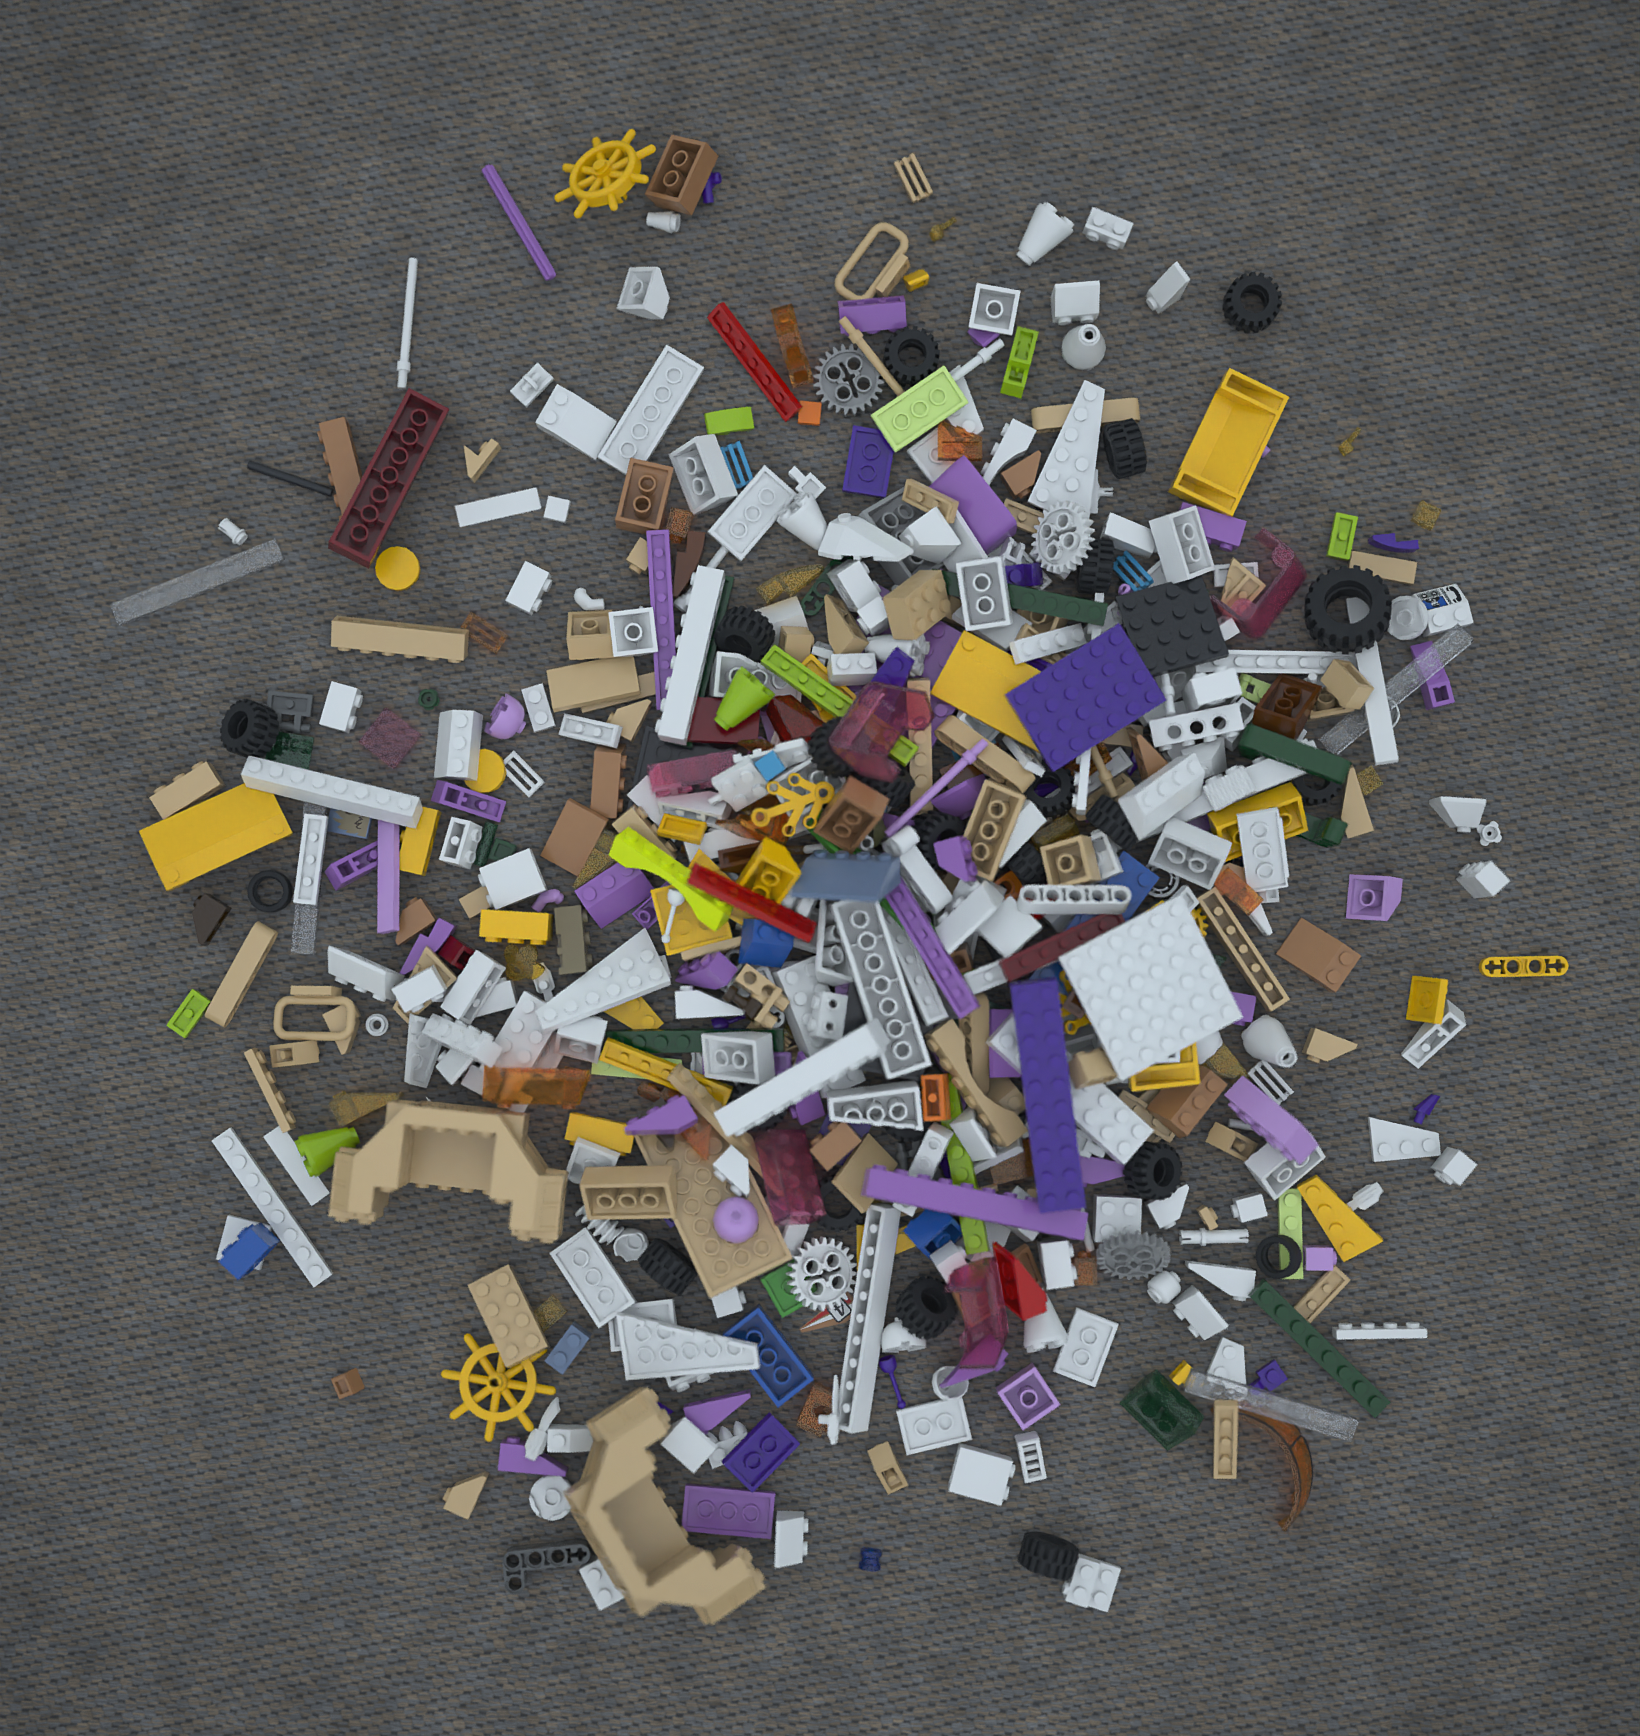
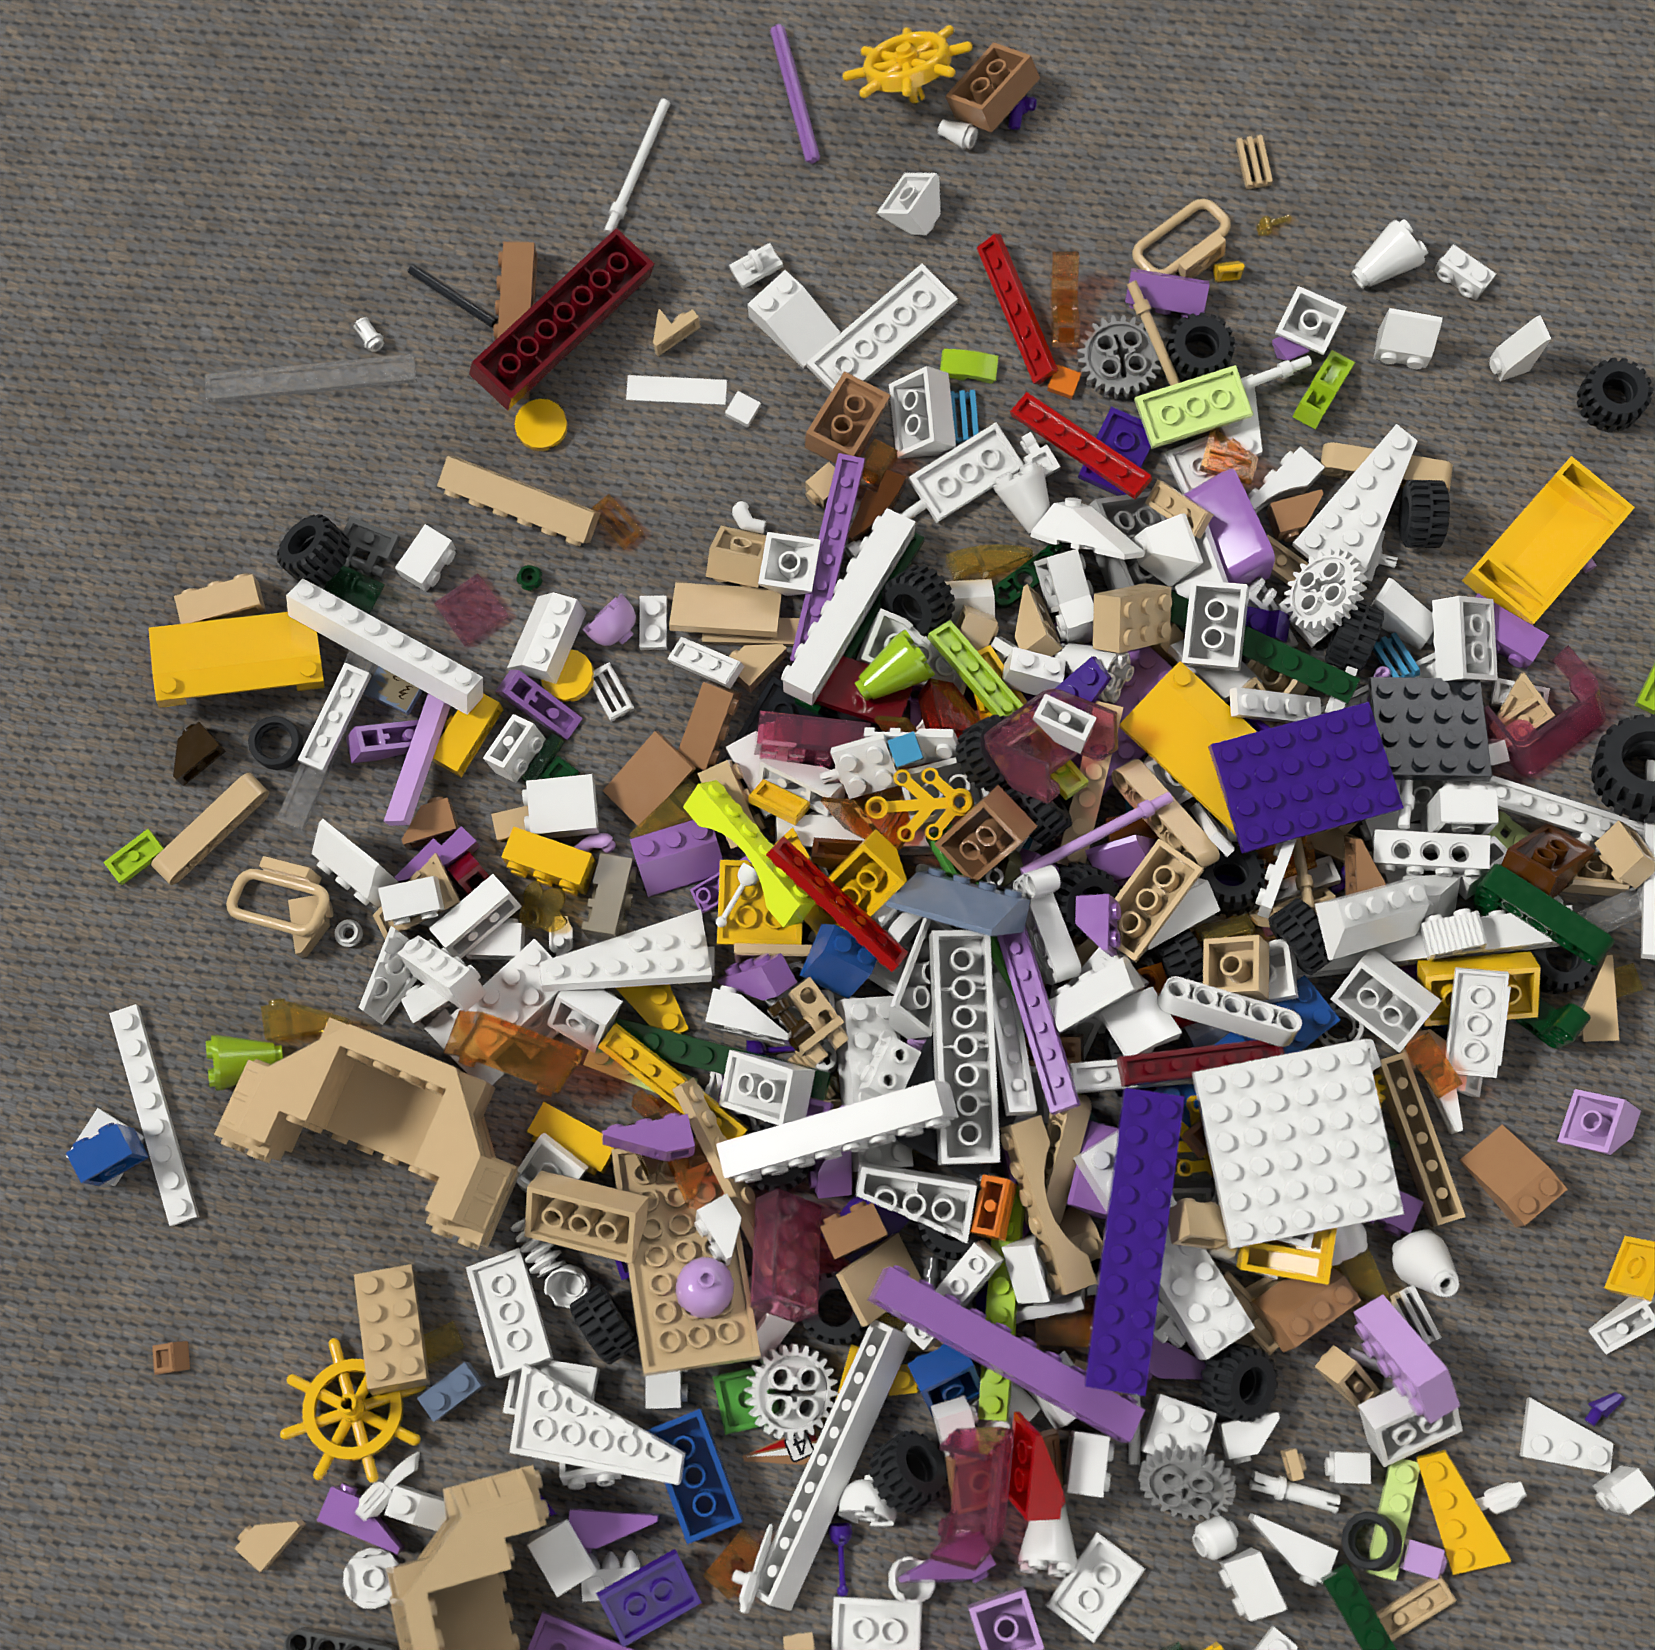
camera: 20 degrees right, 10 degrees down
(274, 1097) = (200, 984): tan plate -> none
(291, 1159) = (194, 1059): white sticker -> none
(294, 1053) = (241, 938): tan slope -> none
(529, 588) = (684, 485): white brick -> none
(837, 466) = (1081, 445): none -> red plate
(887, 711) = (1064, 723): none -> white slope
(1083, 347) = (1404, 390): white cone -> none
(1085, 1268) = (1122, 1484): clear orange brick -> none
(1325, 1046) = (1494, 1290): tan slope -> none

